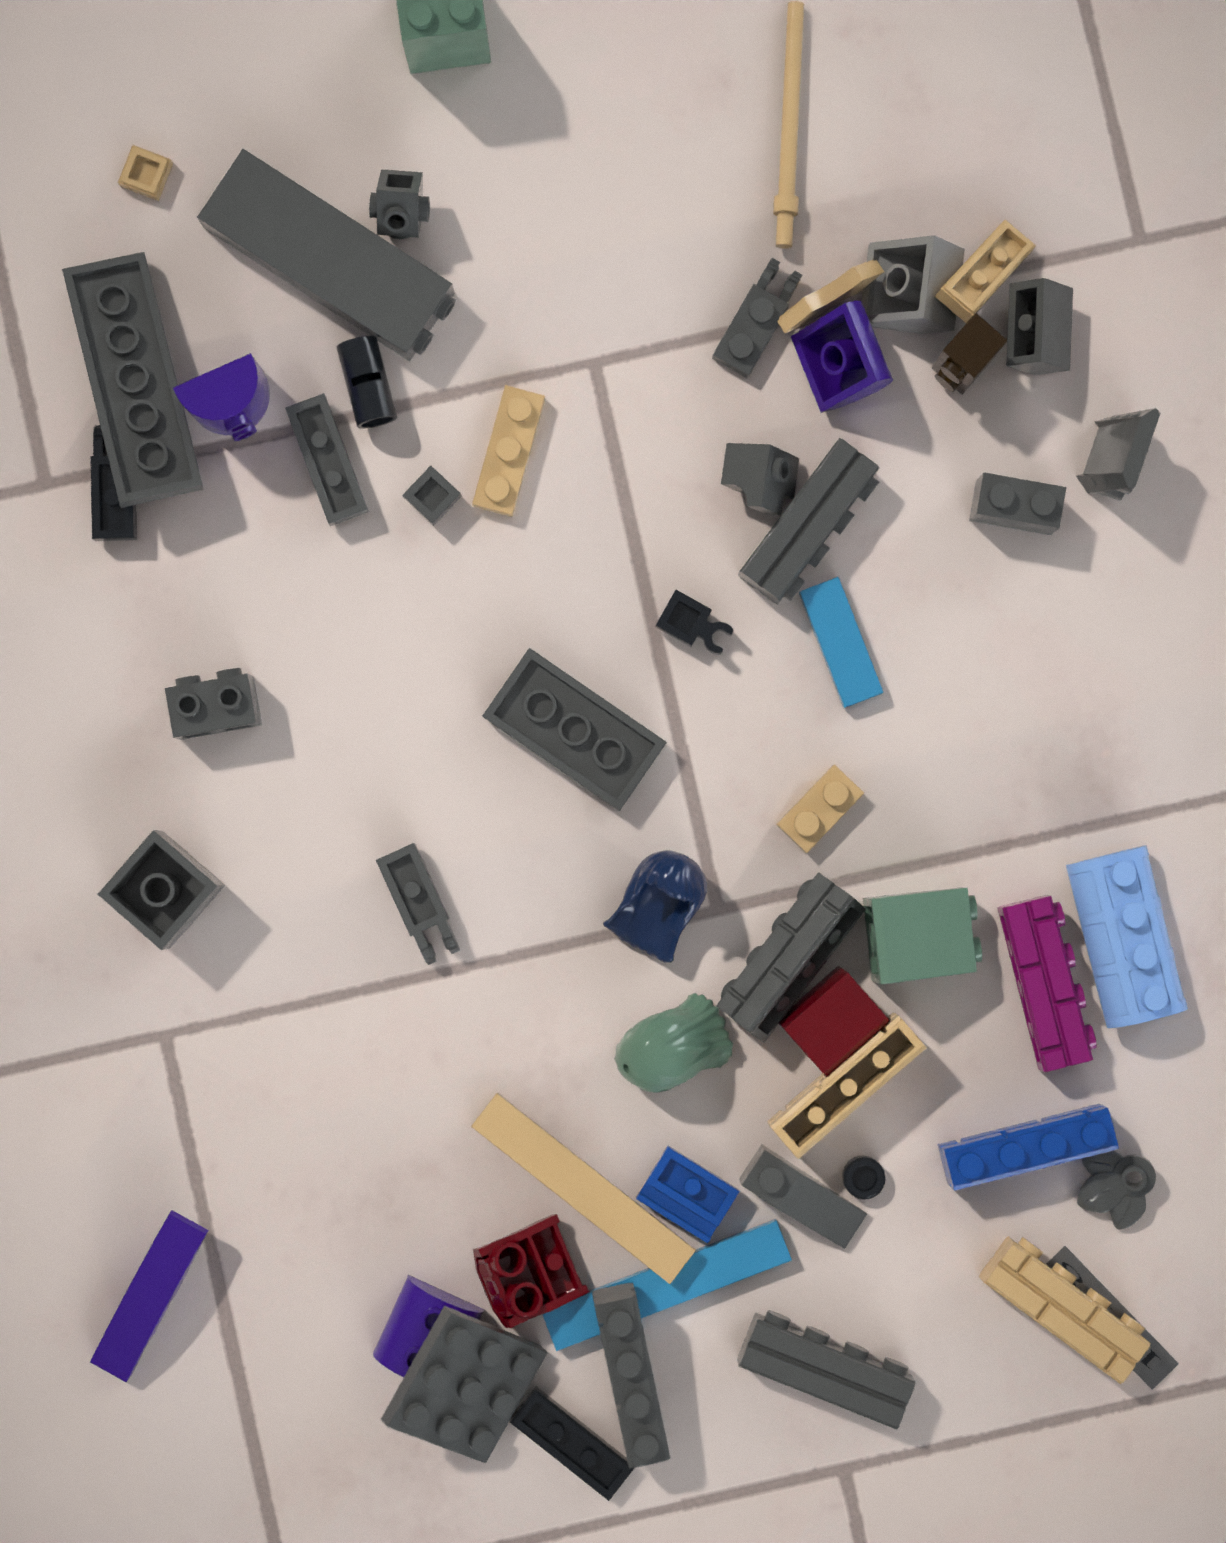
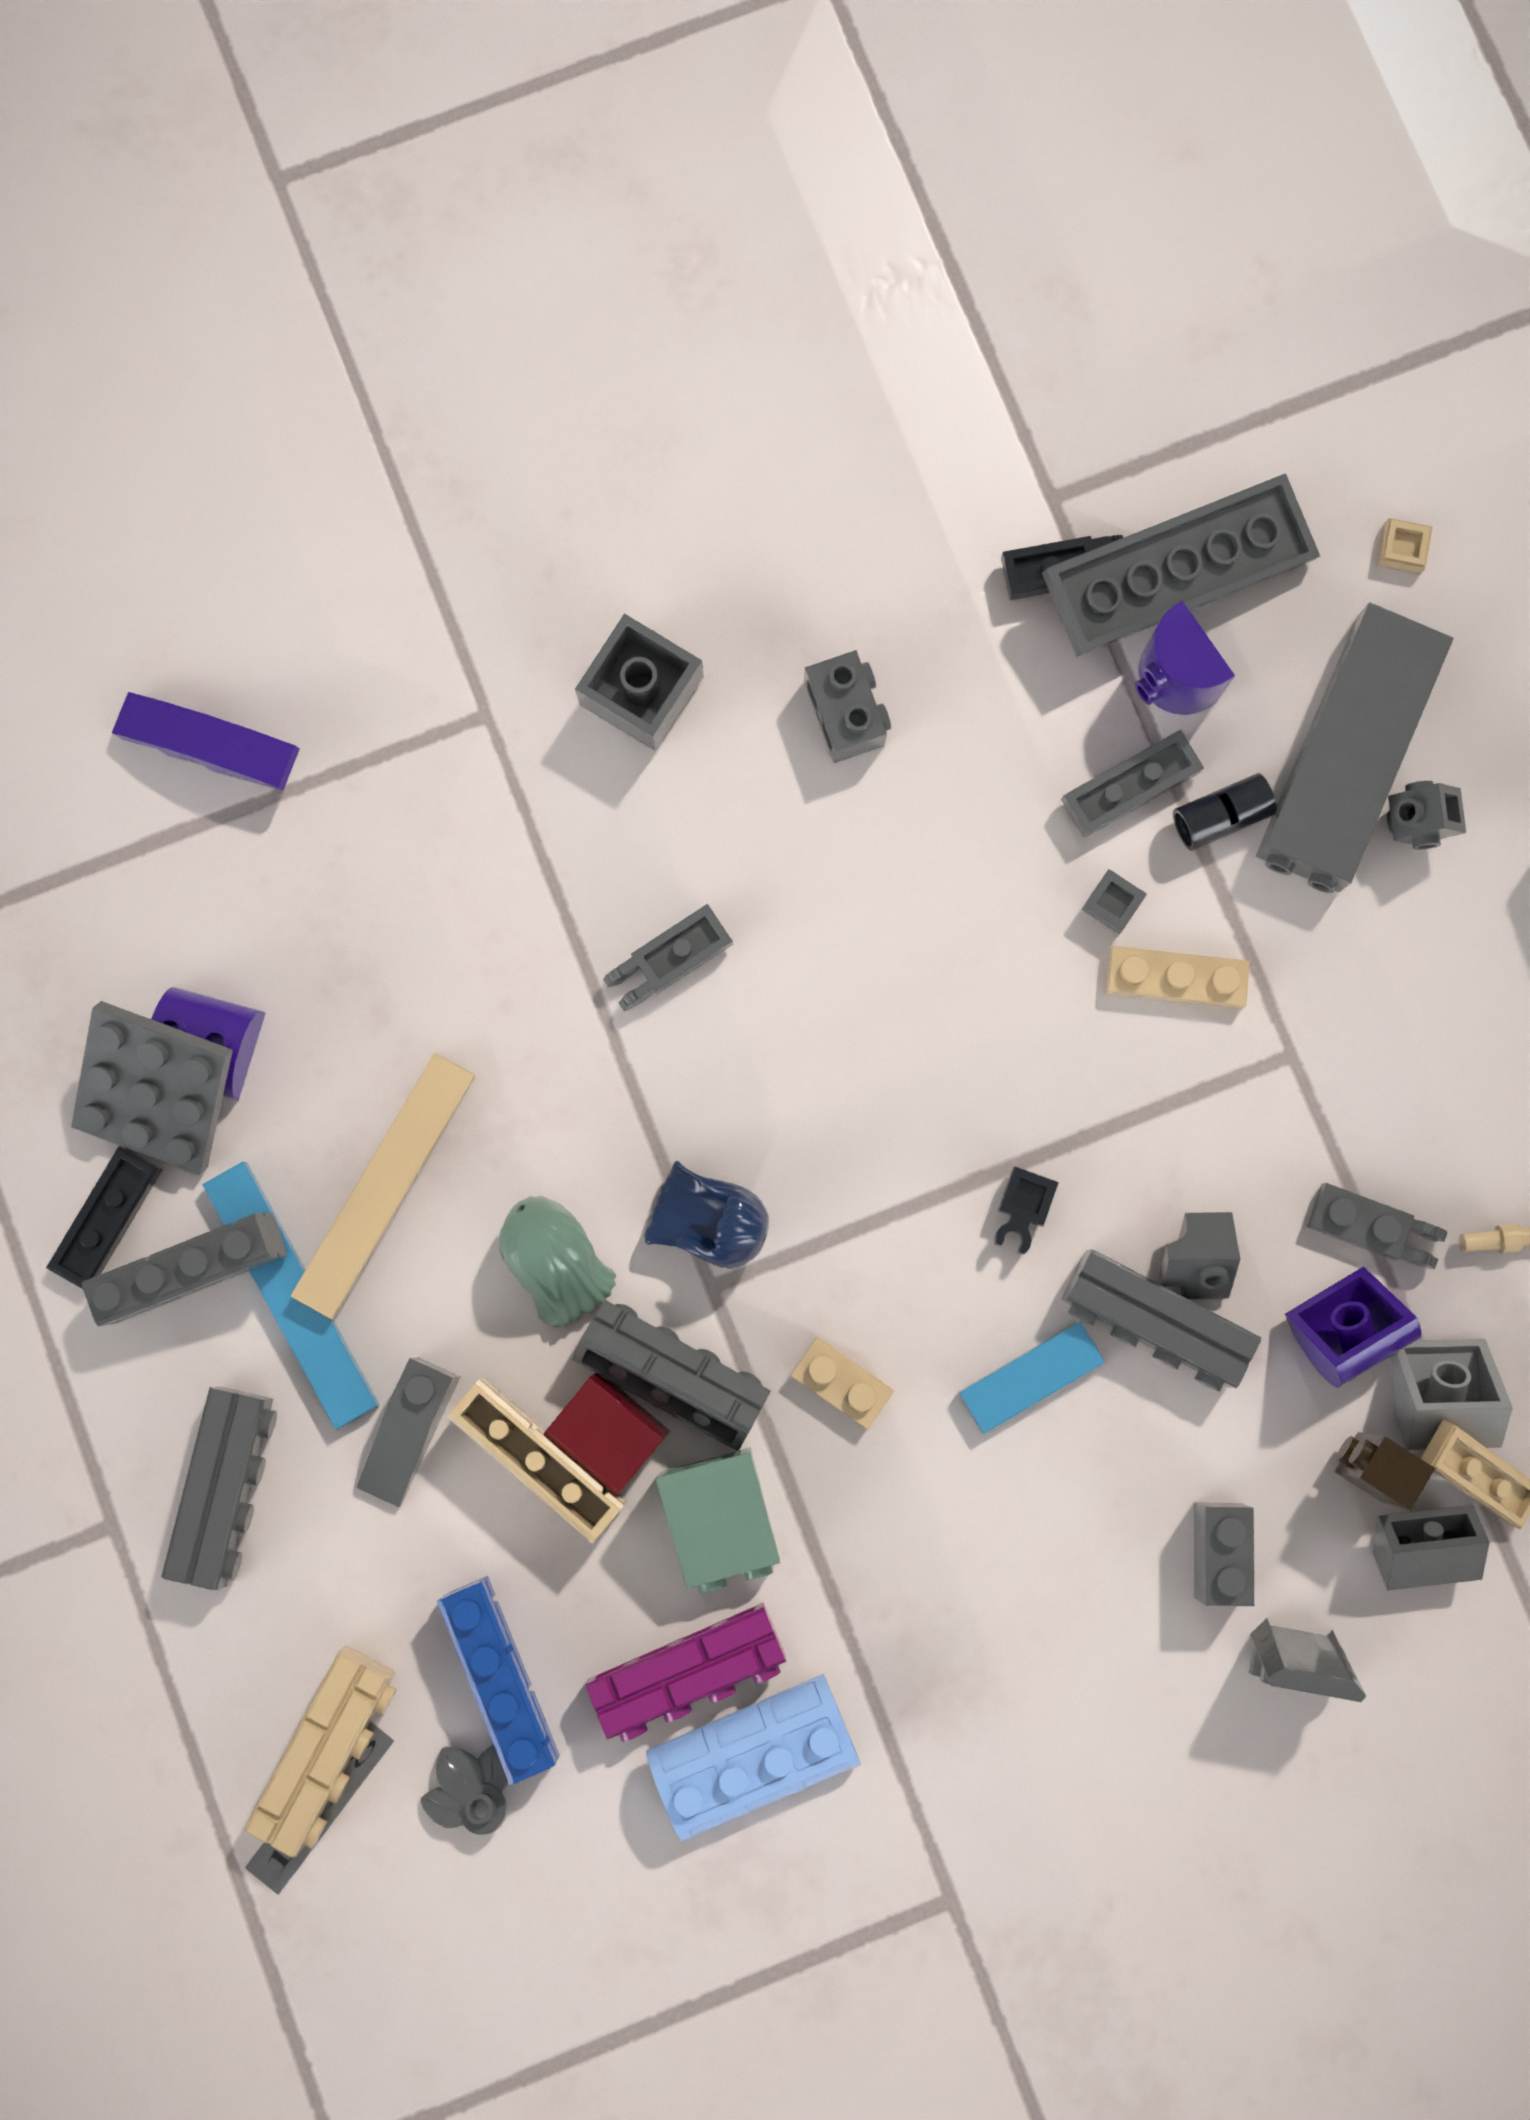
camera: 80 degrees right, 5 degrees down
(528, 1272) = (283, 1140): dark red slope -> none
(574, 729) = (884, 1096): dark grey plate -> none
(687, 1194) = (392, 1301): blue plate -> none
(830, 295) = (1433, 1318): tan tile -> none
(863, 1177) = (438, 1497): black tile -> none

